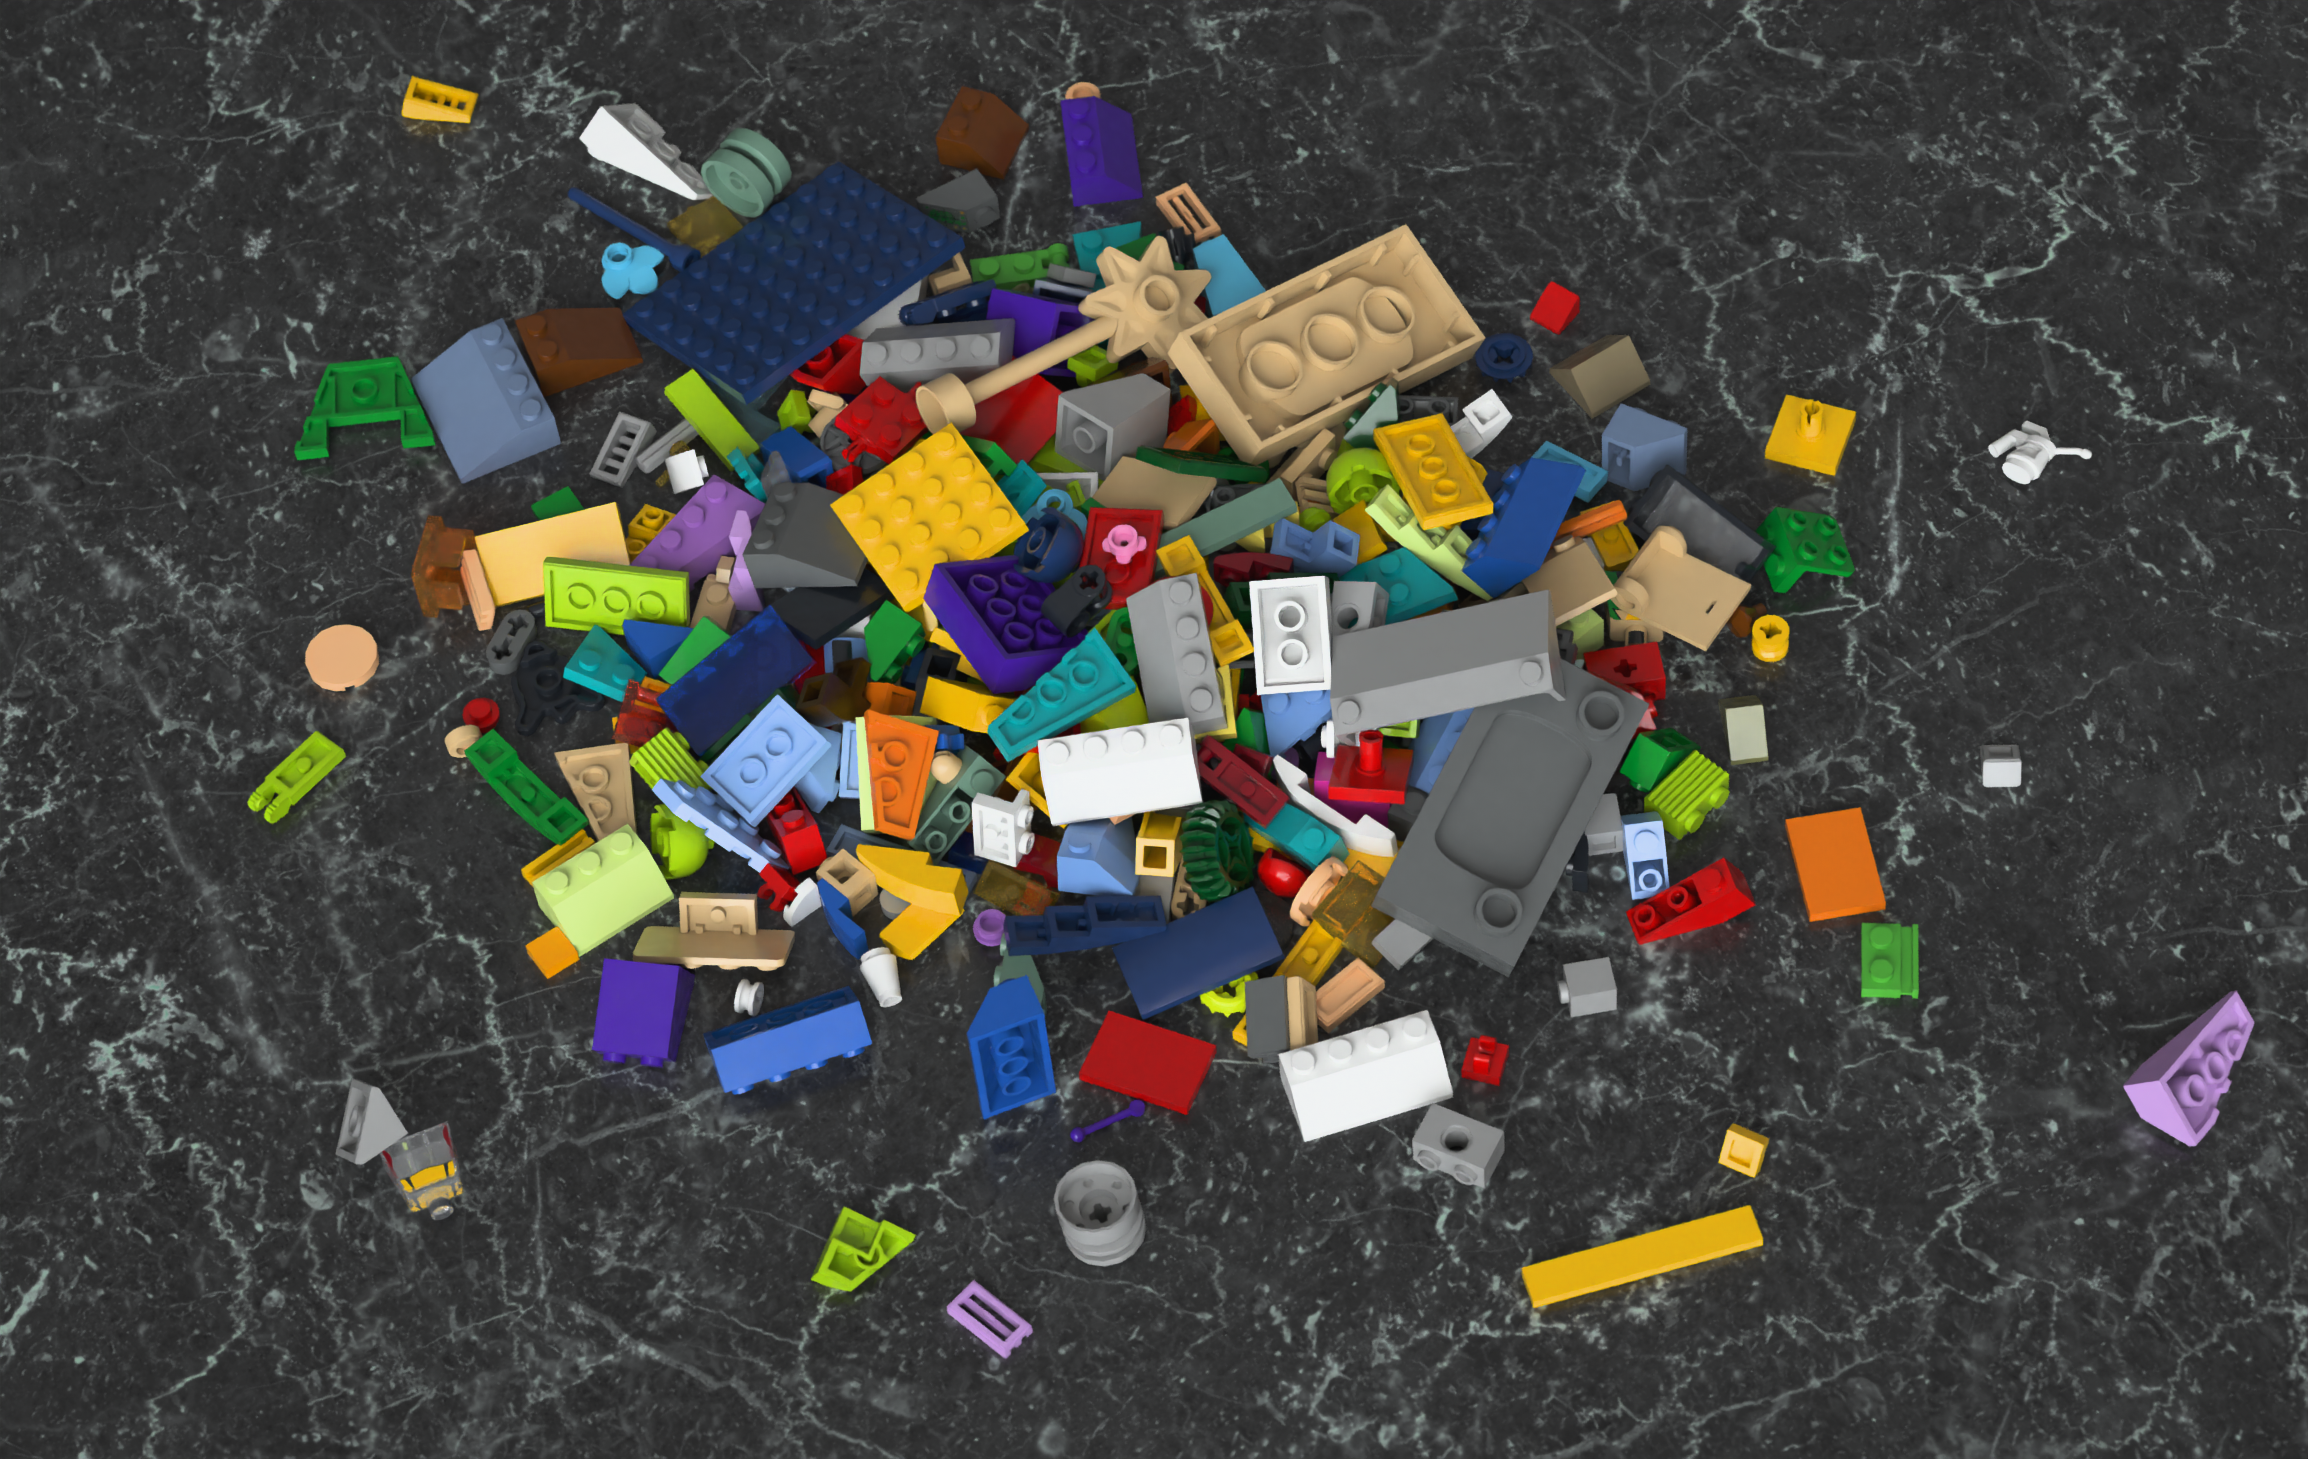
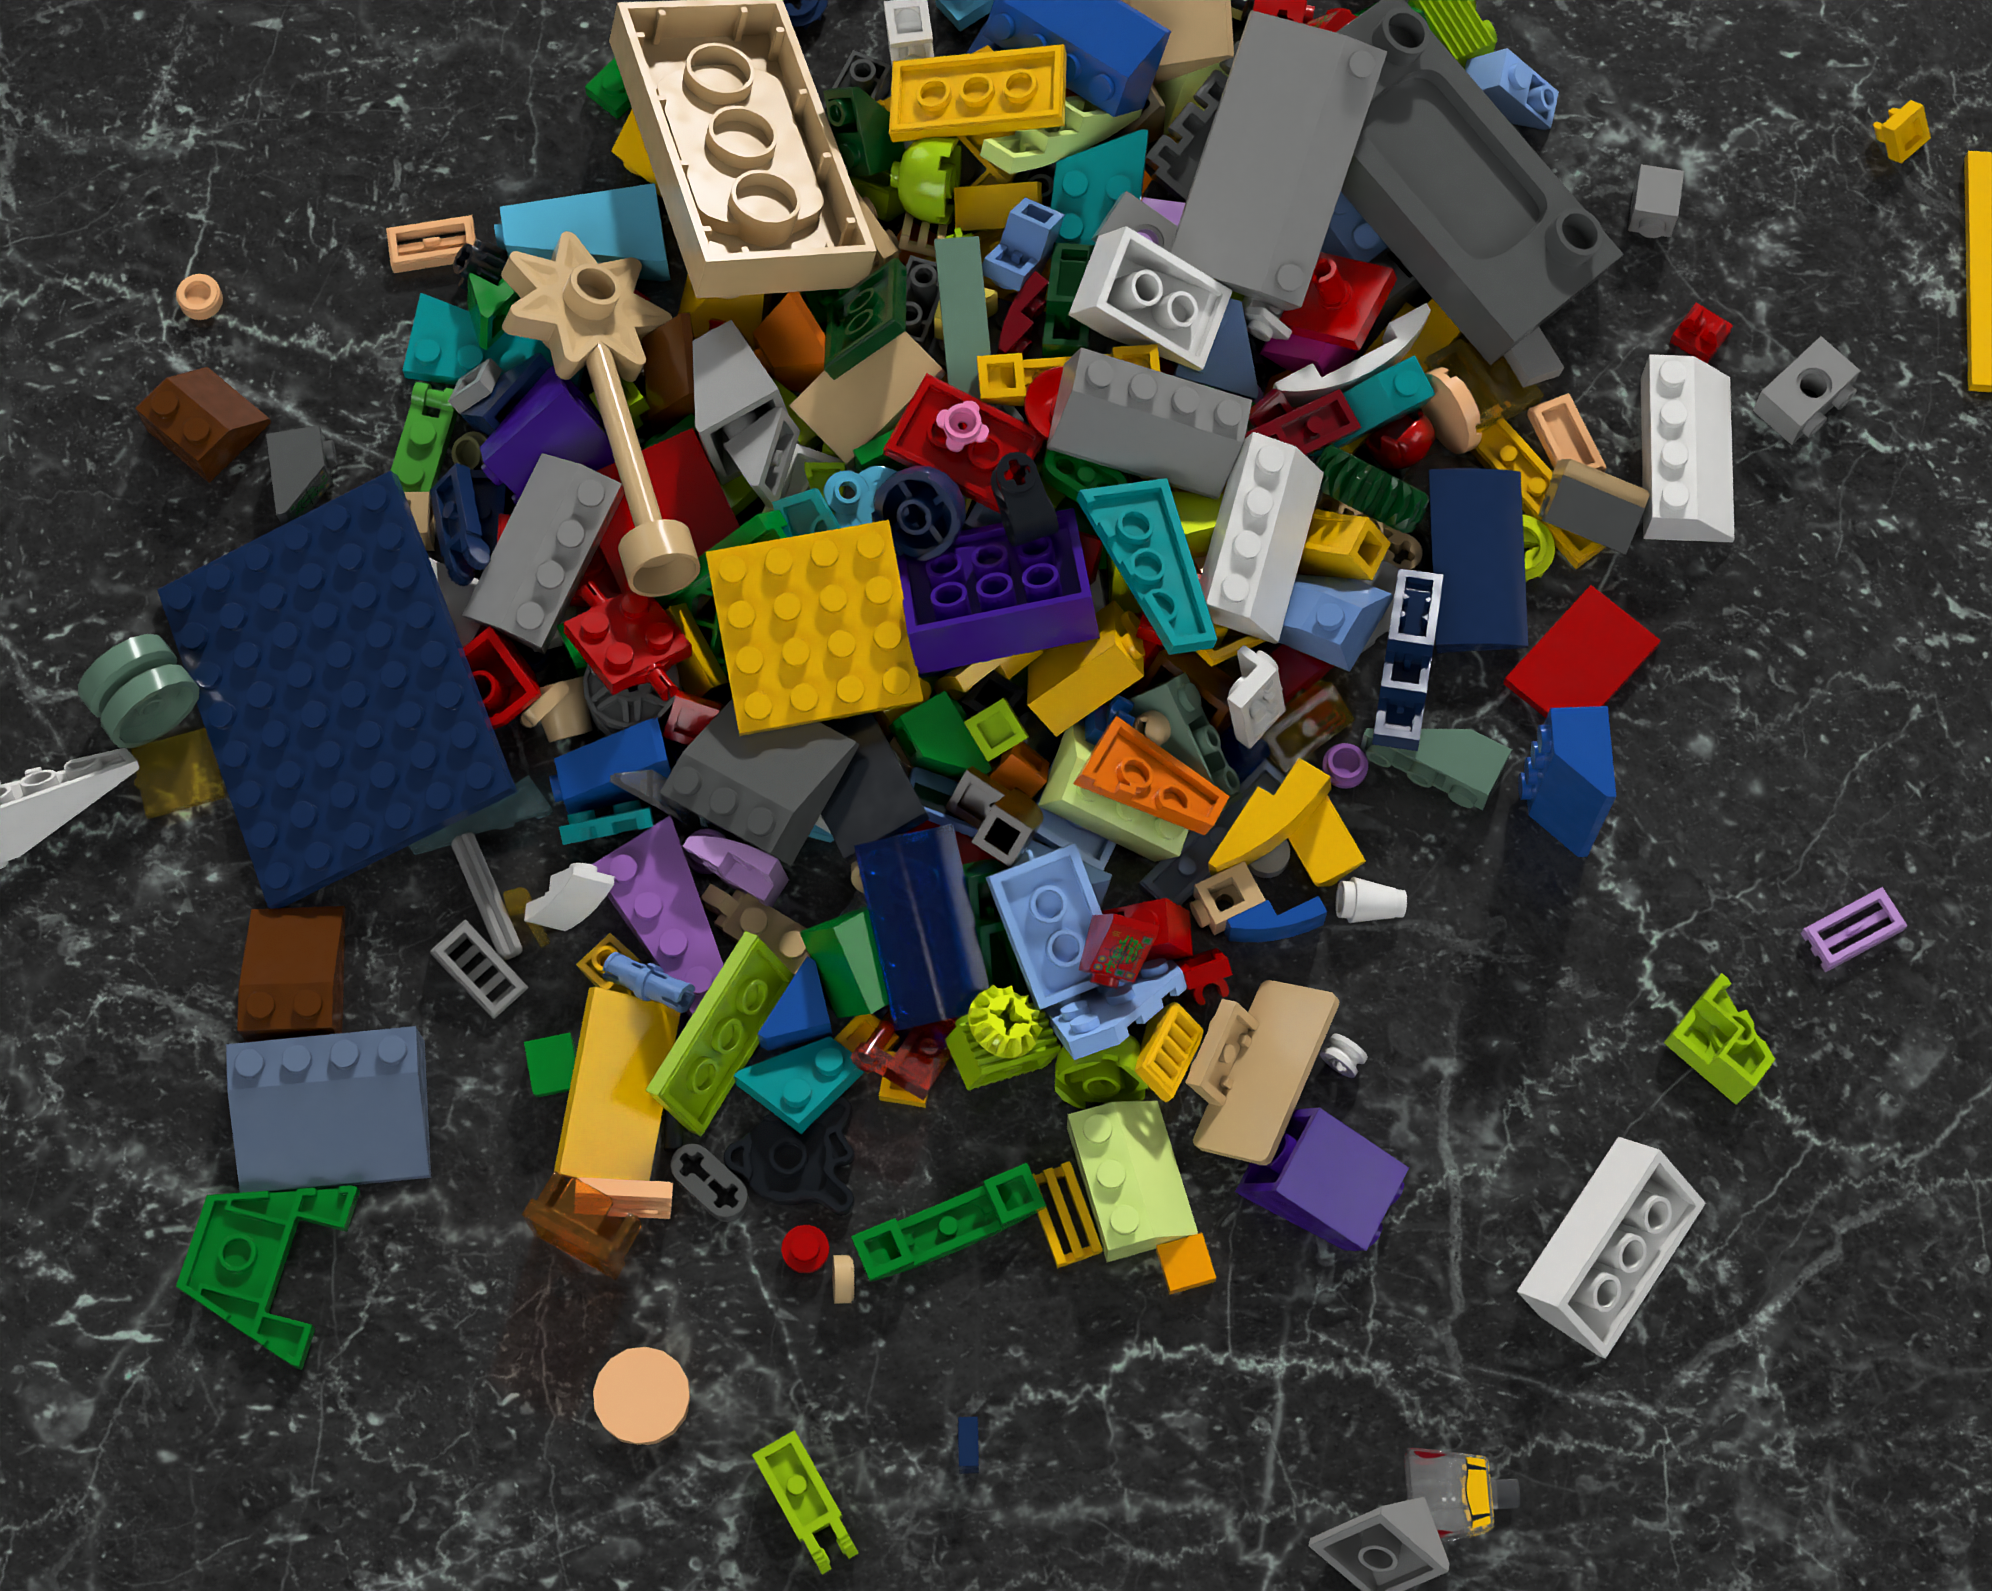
camera: 75 degrees left, 15 degrees up
(366, 857) = (968, 1445): none -> dark blue tile
(601, 785) = (982, 1135): tan wing -> none
(632, 272) = (207, 878): medium azure plate -> none
(634, 536) = (649, 982): none -> medium blue pin
(657, 1220) = (1612, 1245): none -> white slope
(670, 767) = (990, 1029): none -> neon yellow gear
(679, 255) = (212, 812): dark blue piece -> none
(709, 417) = (491, 848): lime tile -> none
(724, 879) = (1171, 1042): none -> yellow slope
(754, 793) = (1116, 948): none -> red slope
(788, 1040) = (1416, 1029): slope -> none
(796, 412) = (527, 753): lime tile -> none
(804, 903) = (1232, 948): white tile -> none
(904, 667) = (996, 729): none -> lime tile
(1070, 453) = (765, 453): none -> light grey slope
(1100, 151) = (295, 305): dark purple slope -> none
(1100, 1213) = (1802, 747): light grey wheel -> none
(1136, 1109) = (1633, 695): dark purple hinge -> none
(1693, 903) = (1588, 74): red slope -> none

